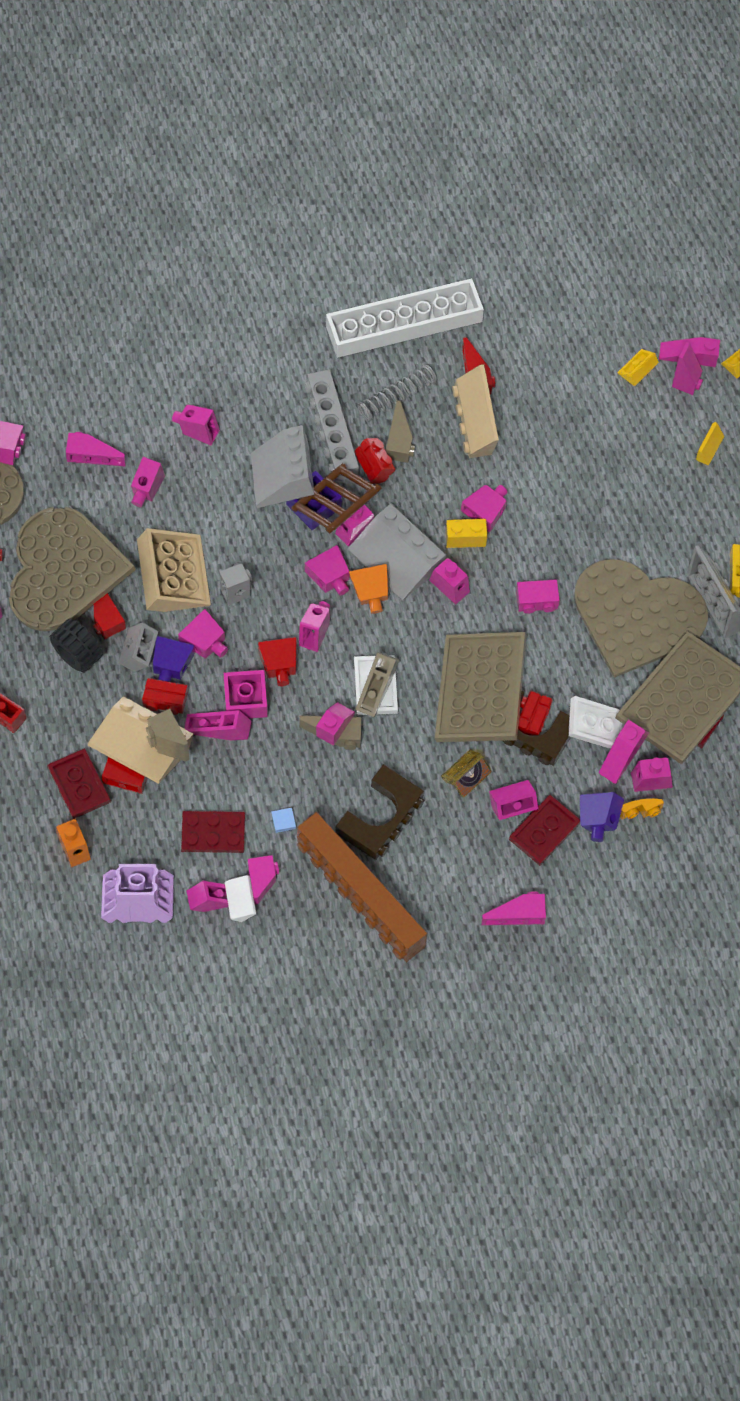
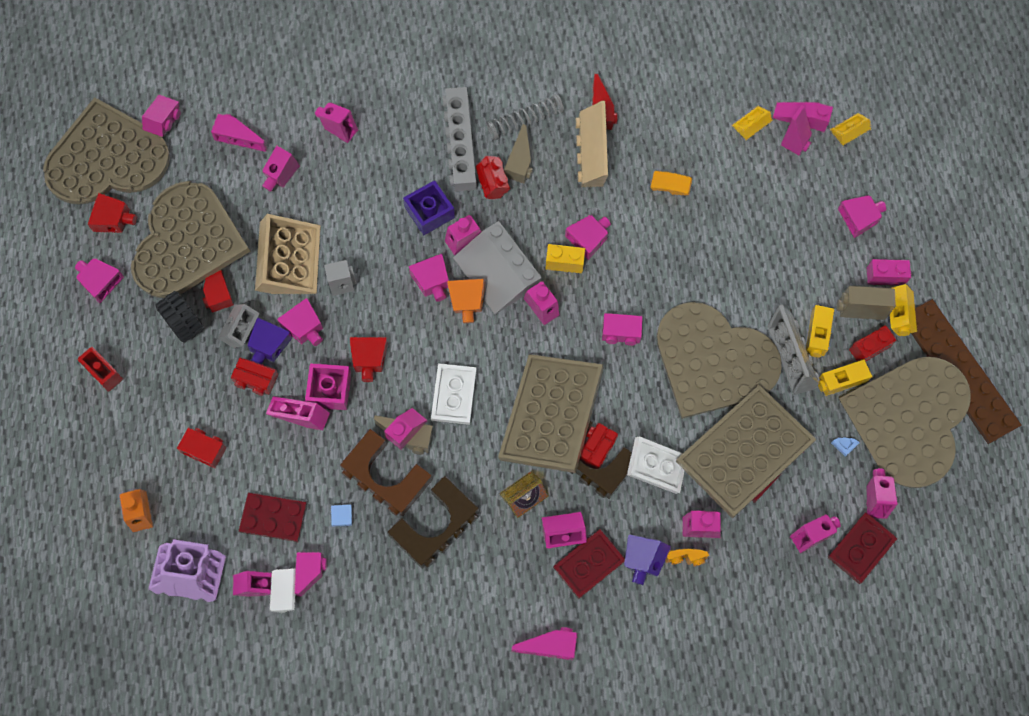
camera: 10 degrees right, 5 degrees up
(78, 783) = (156, 450): dark red plate -> none
(125, 740) = (220, 418): tan slope -> none
(167, 736) = (237, 420): dark tan slope -> none
(282, 468) = (405, 174): light grey slope -> none
(317, 619) = (406, 328): dark pink torso -> none
(329, 482) = (450, 226): reddish brown bar -> none
(338, 793) = (397, 497): none -> reddish brown arch
(361, 888) = (400, 599): dark orange brick -> none
(377, 683) = (453, 394): dark tan slope -> none
(404, 318) = (544, 48): white brick -> none
(563, 440) = (672, 182): none -> light orange slope
(623, 751) = (678, 496): dark pink slope -> none
(710, 444) = (808, 205): yellow slope -> none

